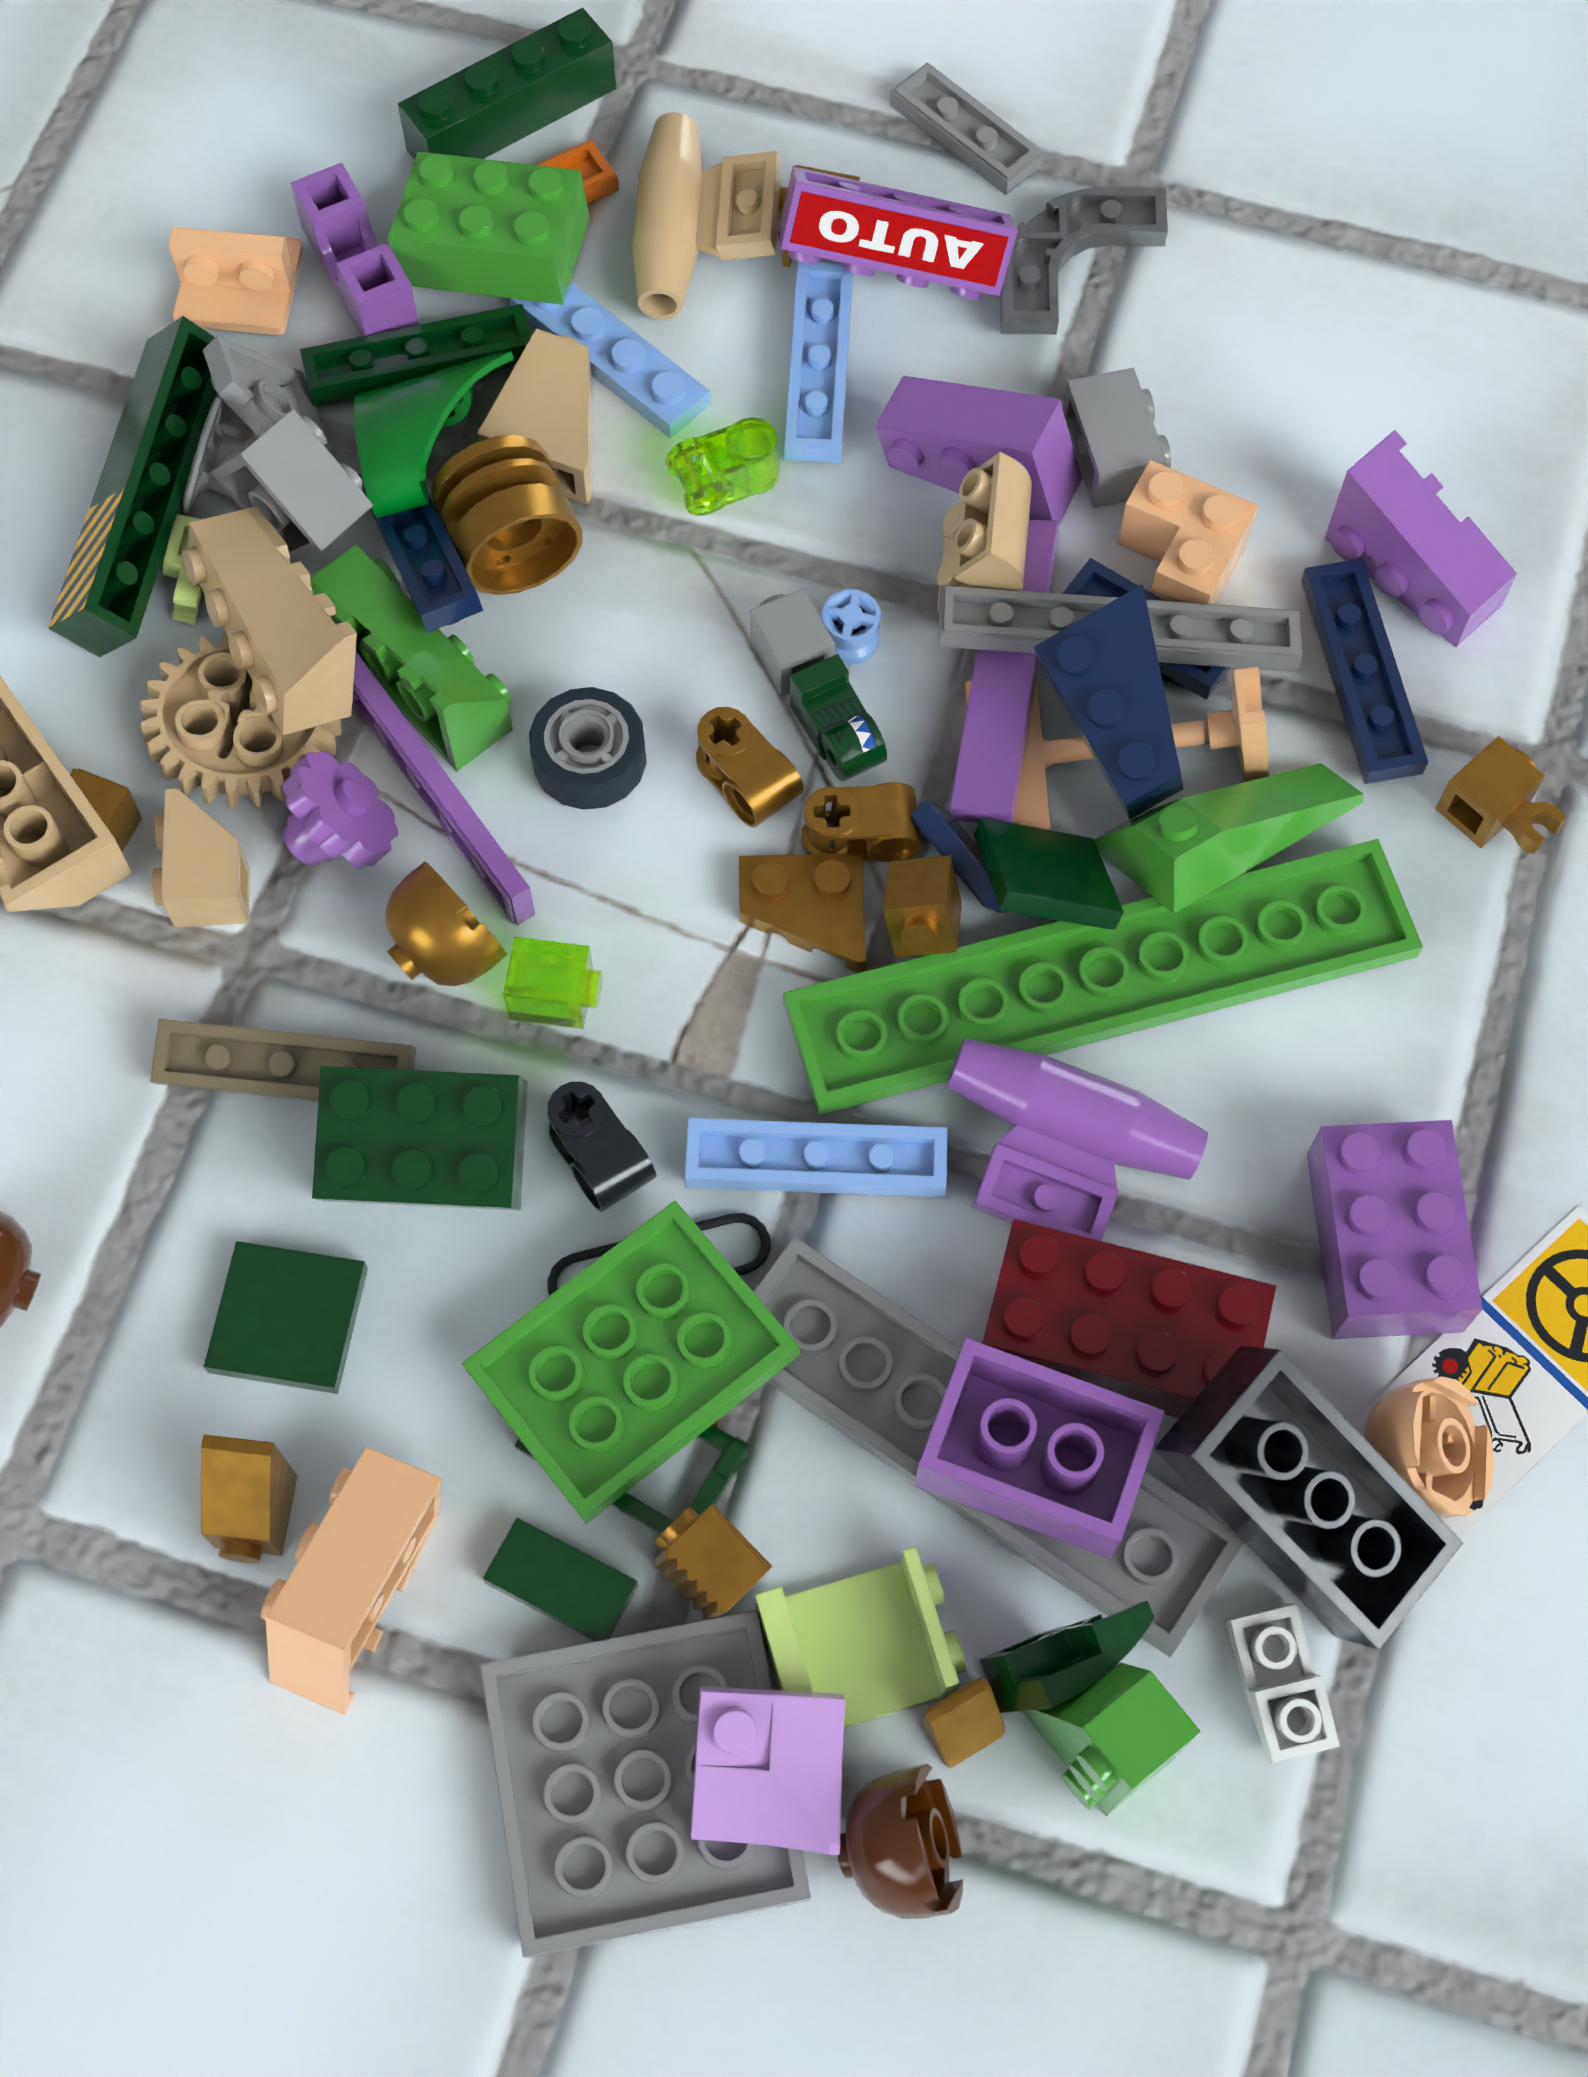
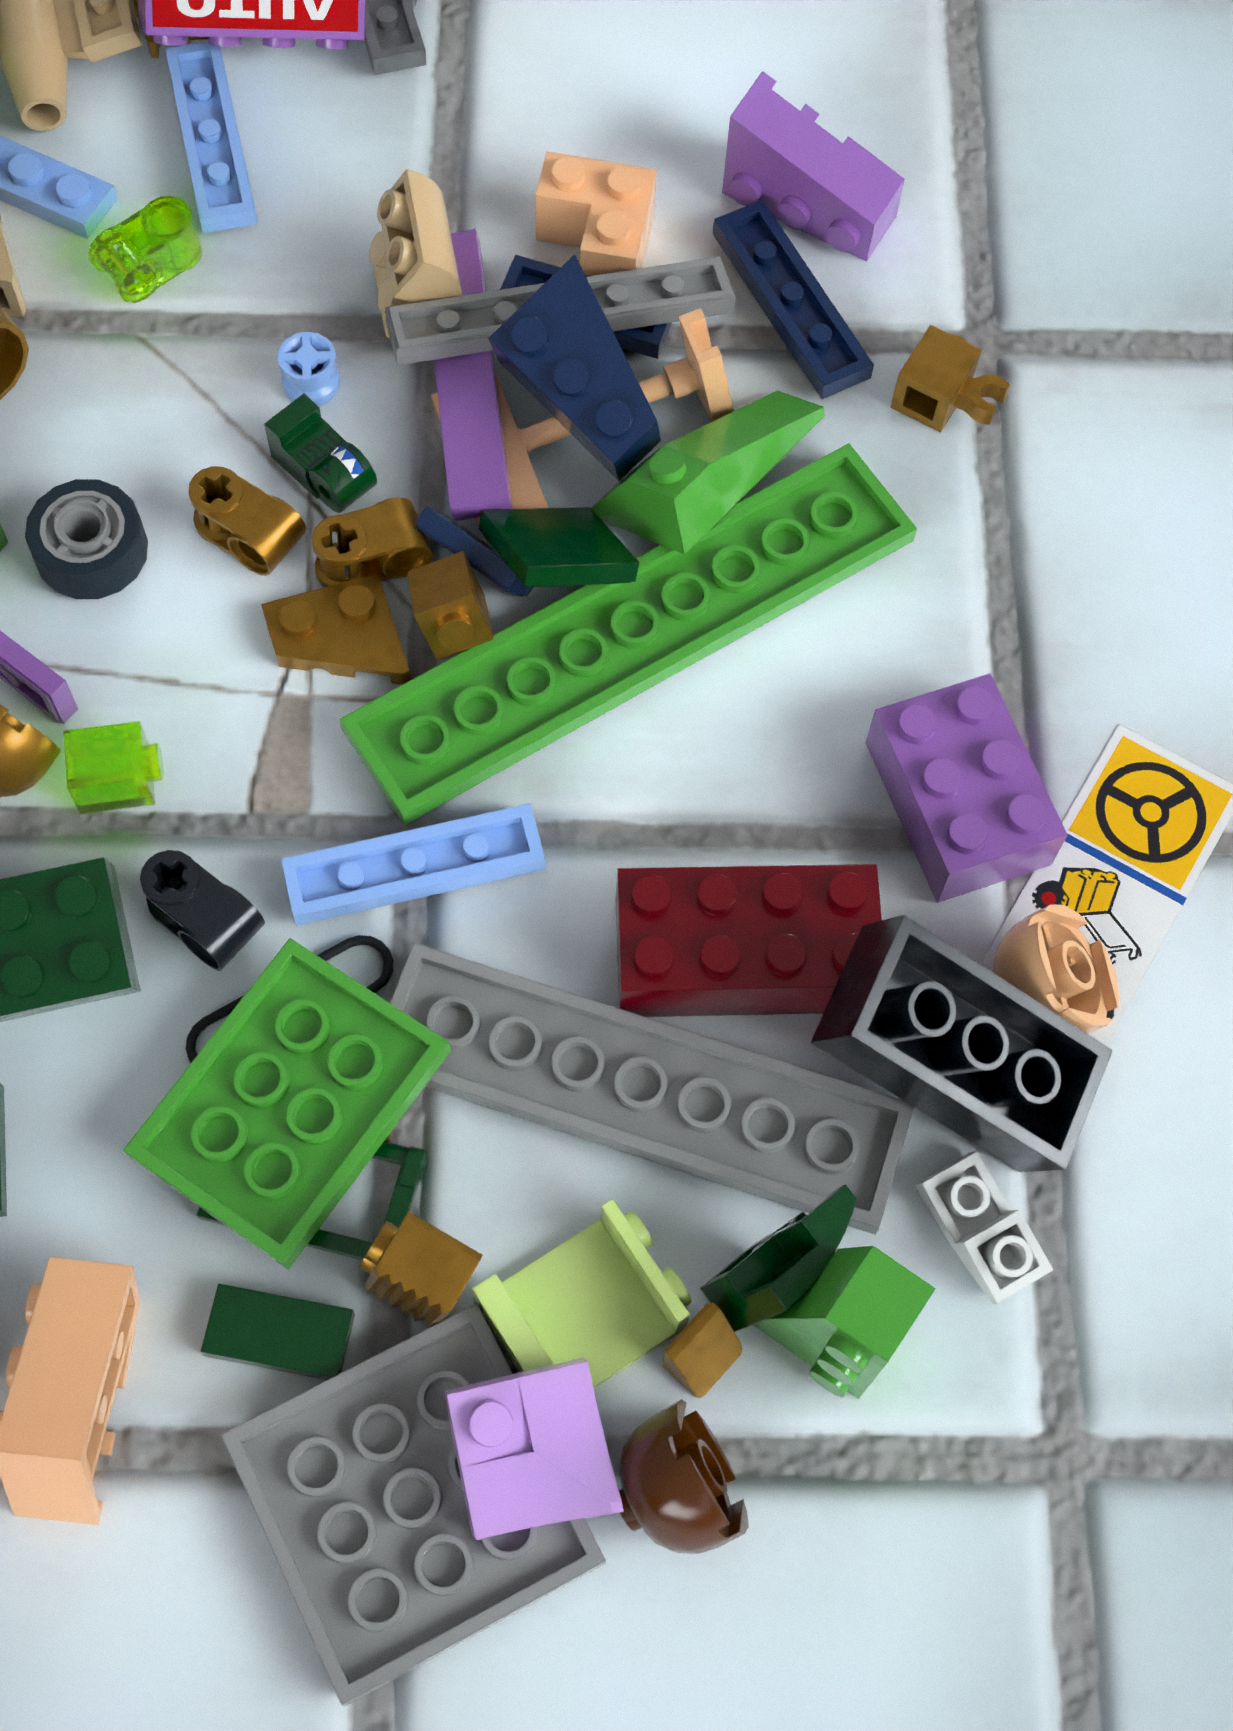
camera: 20 degrees left, 0 degrees up
(789, 636) = (252, 390): light grey brick -> none
(950, 428) = (347, 166): medium lavender wedge -> none
(1039, 1448) = (704, 1073): medium lavender brick -> none
(1066, 1137) = (643, 782): medium lavender plate -> none
(1112, 433) = (502, 139): light grey brick -> none

